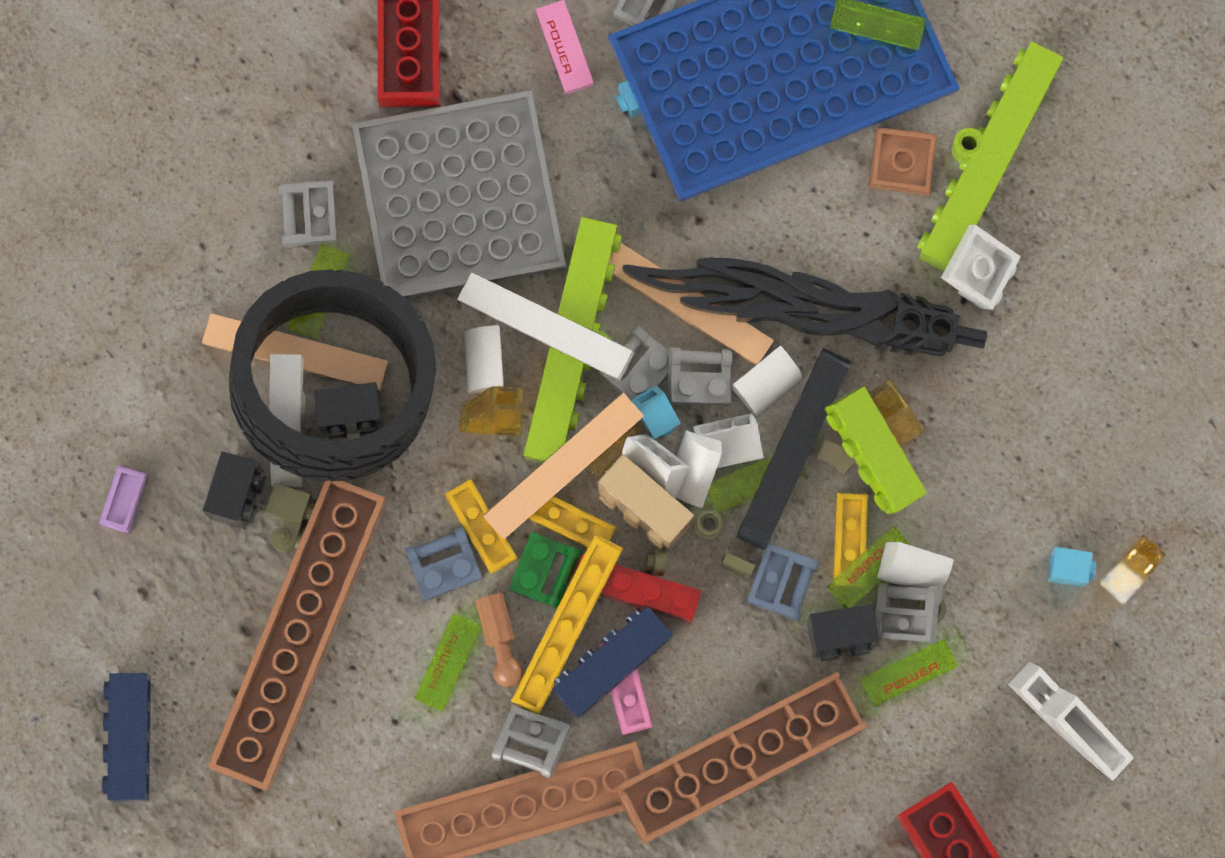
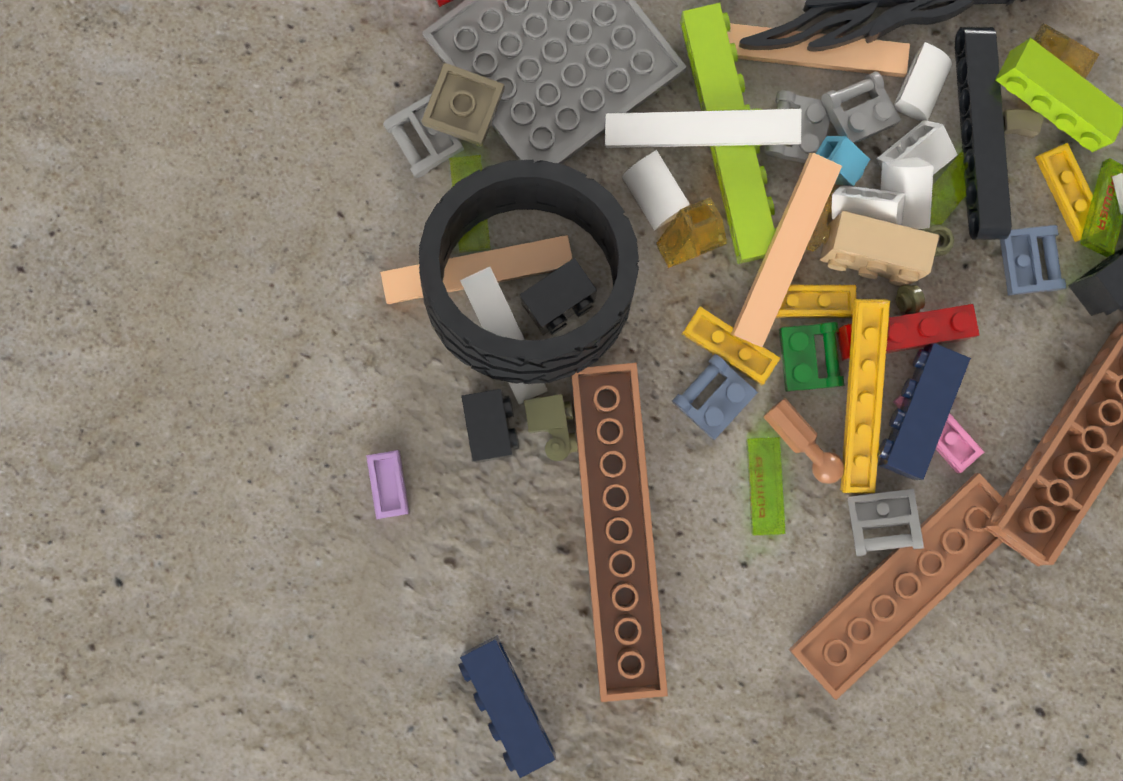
camera: 25 degrees left, 5 degrees up
(353, 205) = (463, 104): none -> dark tan plate
(738, 566) = (987, 265): olive tile -> none

